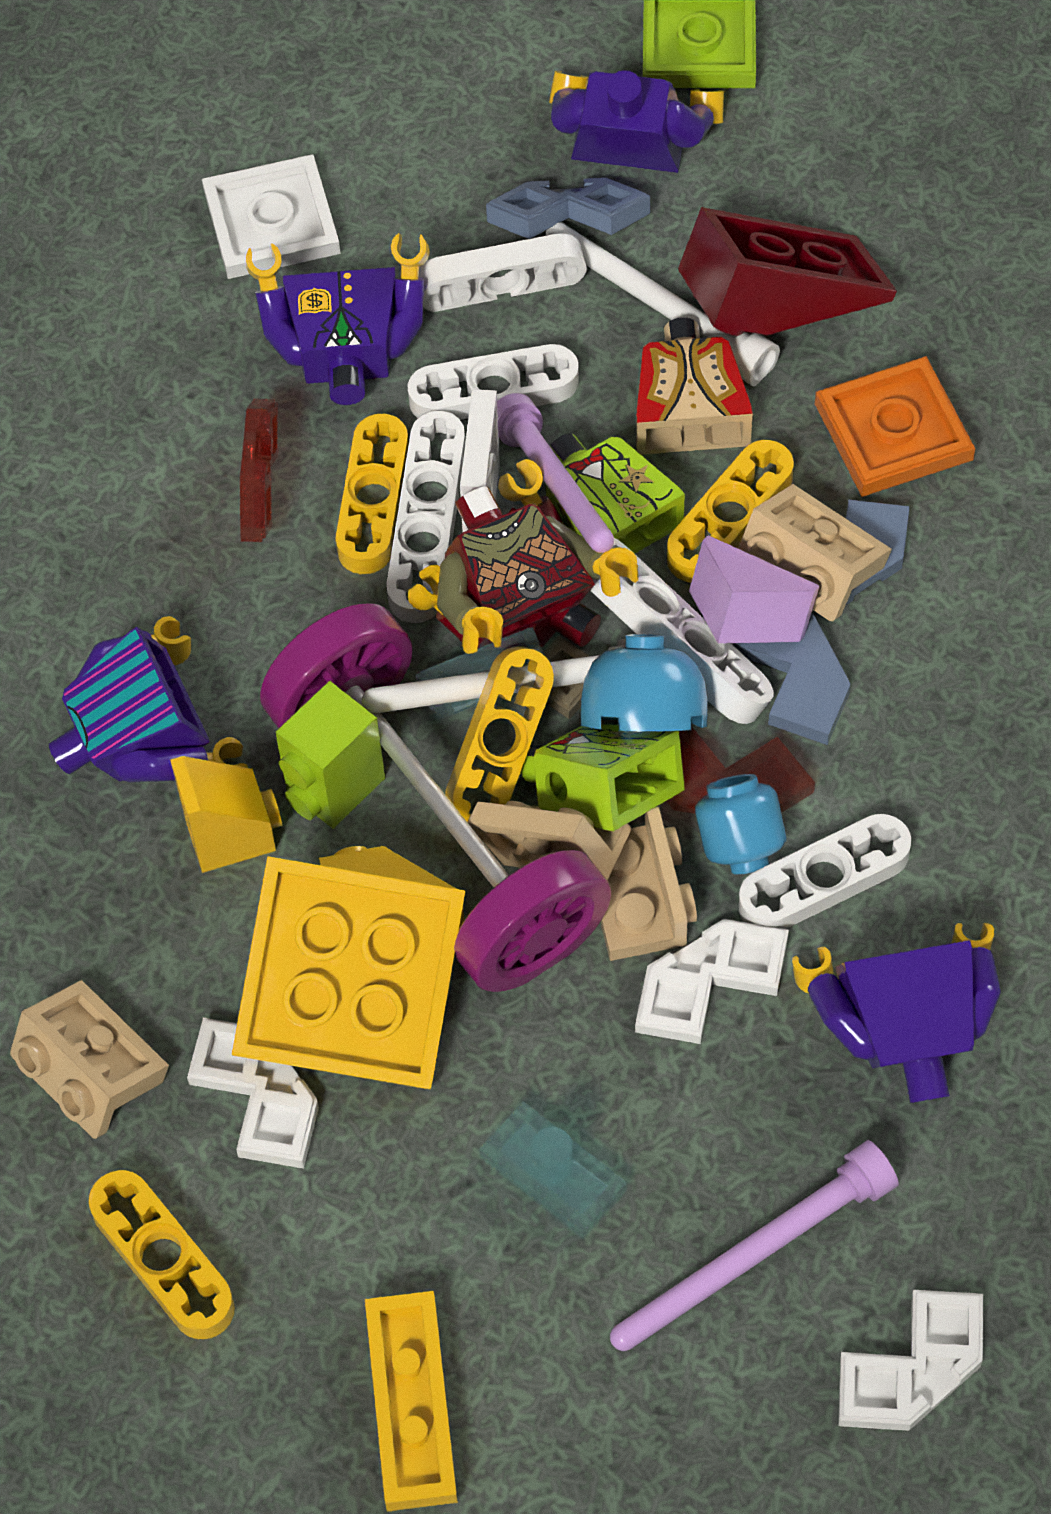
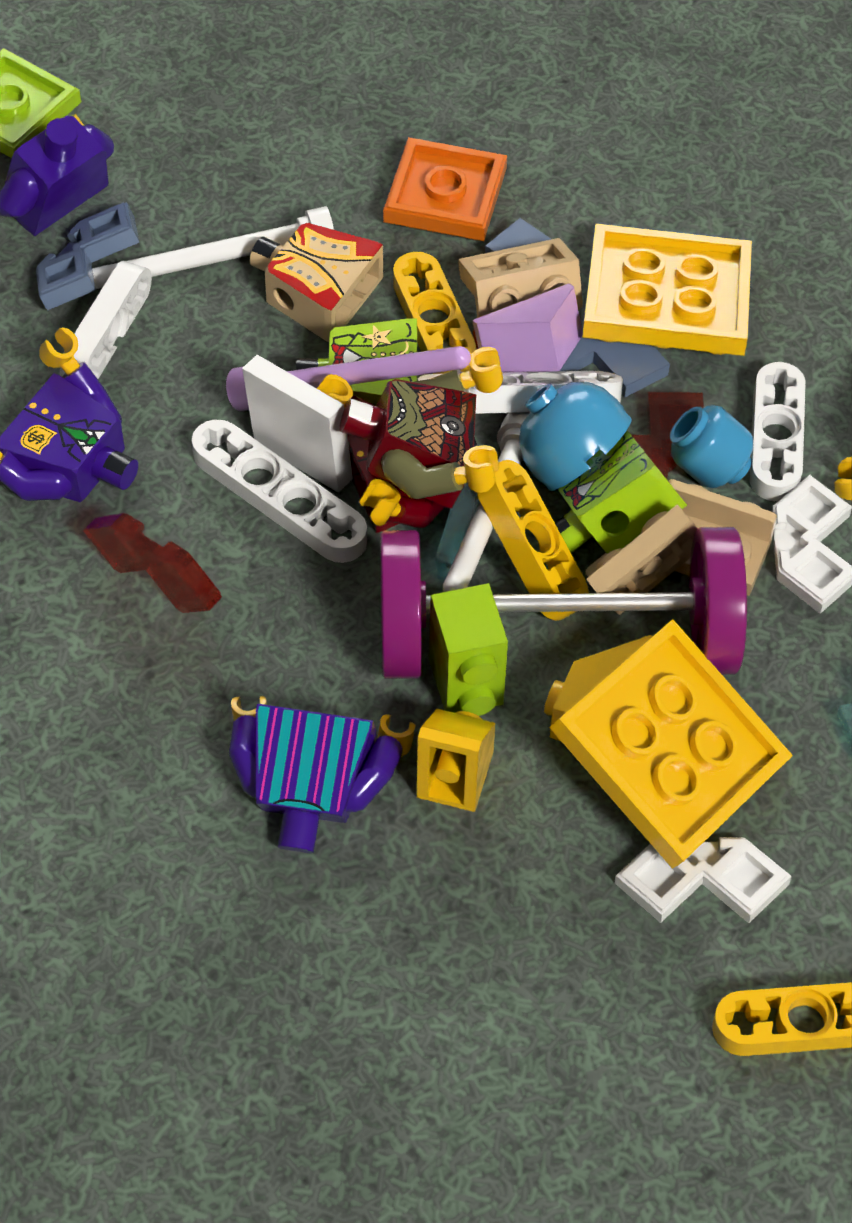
camera: 60 degrees left, 5 degrees down
(85, 1056) = (596, 977): tan bracket -> none
(364, 472) = (221, 491): yellow beam -> none
(504, 364) = (196, 366): white beam -> none
(777, 273) = (268, 172): dark red slope -> none
(914, 678) = (669, 290): none -> yellow plate

